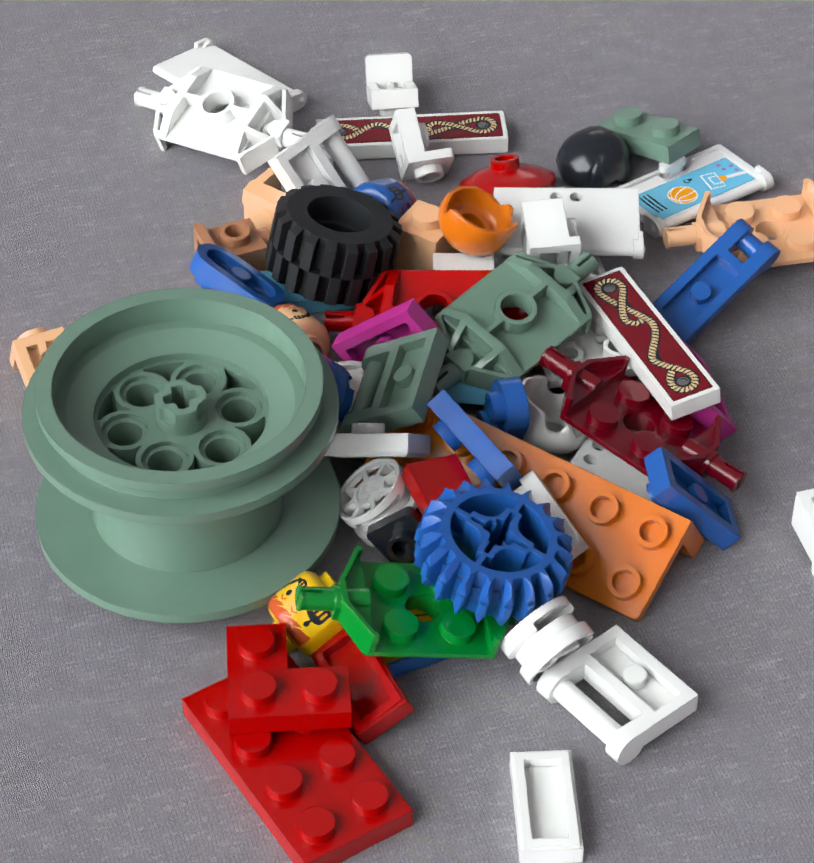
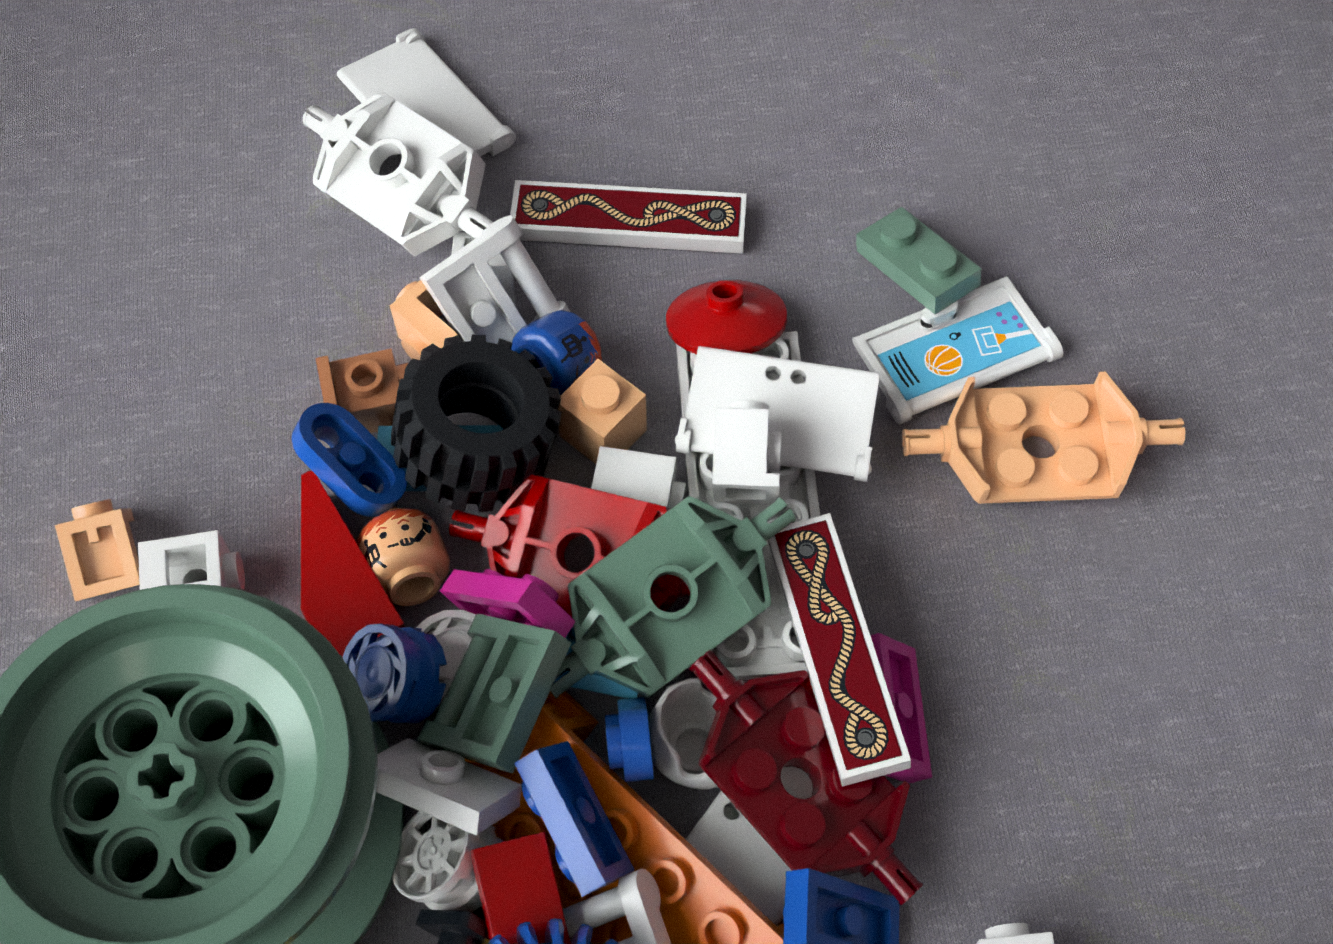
camera: 10 degrees right, 20 degrees up
(390, 82) = (615, 137): white bracket -> none
(412, 146) = (617, 243): white bracket -> none
(475, 221) = (657, 417): orange hair -> none
(594, 158) = (843, 290): black hair -> none
(715, 280) = (946, 538): blue plate -> none

